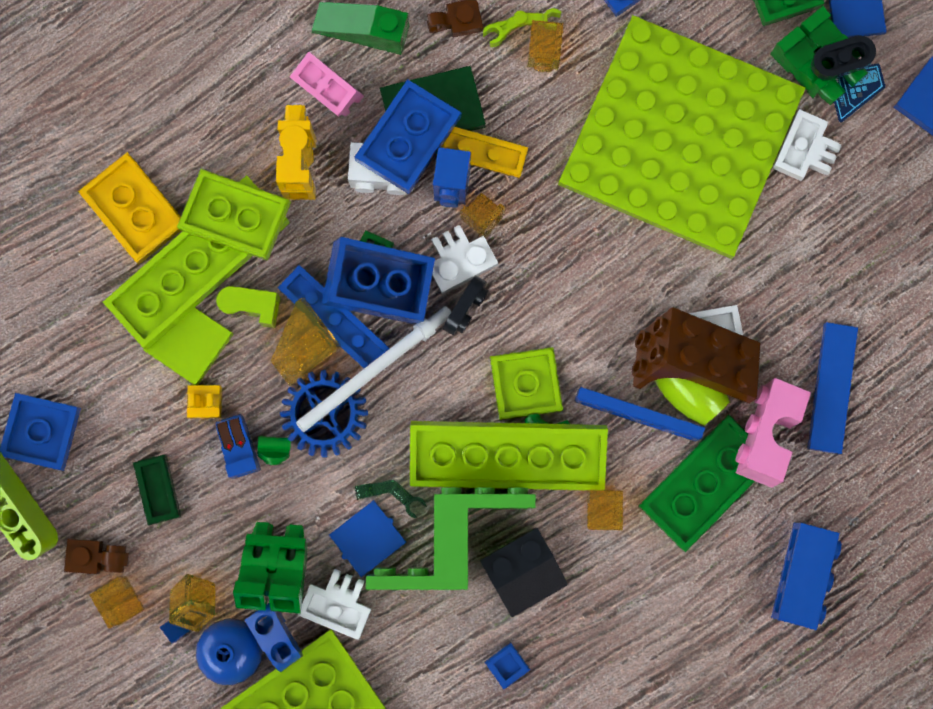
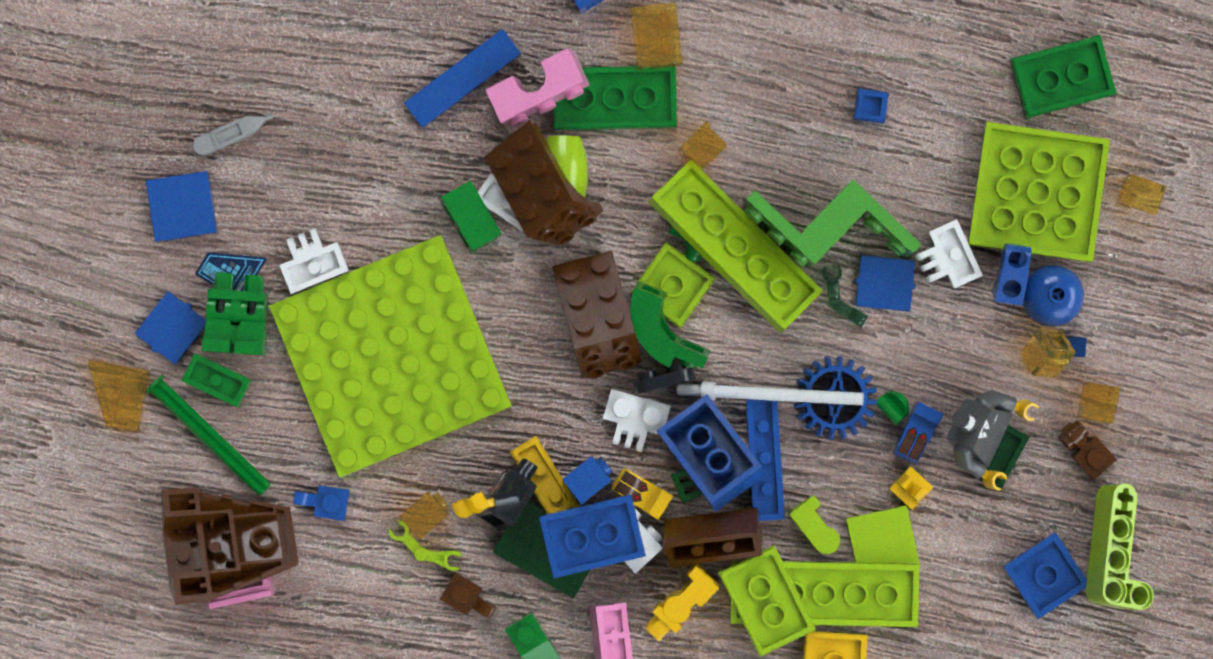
camera: 135 degrees left, 5 degrees up
(189, 492) = (979, 430): none -> dark grey torso
(272, 569) = (975, 321): green hips -> none
(302, 344) = (804, 461): clear yellow wing -> none
(317, 222) = (713, 537): none -> reddish brown brick
(402, 208) = (644, 493): none -> yellow leg
(482, 214) = (588, 434): clear yellow panel -> none
(498, 104) = (505, 498): none -> black torso
(502, 332) = (655, 334): none -> green arch
(524, 572) = (800, 158): black slope -> none
(562, 305) = (597, 315): none -> reddish brown bracket
(639, 414) = (616, 188): blue tile -> none
(722, 560) = (656, 36): none -> clear yellow plate
(725, 288) = (470, 217): none -> green hinge
(841, 58) = (229, 298): black plate -> none

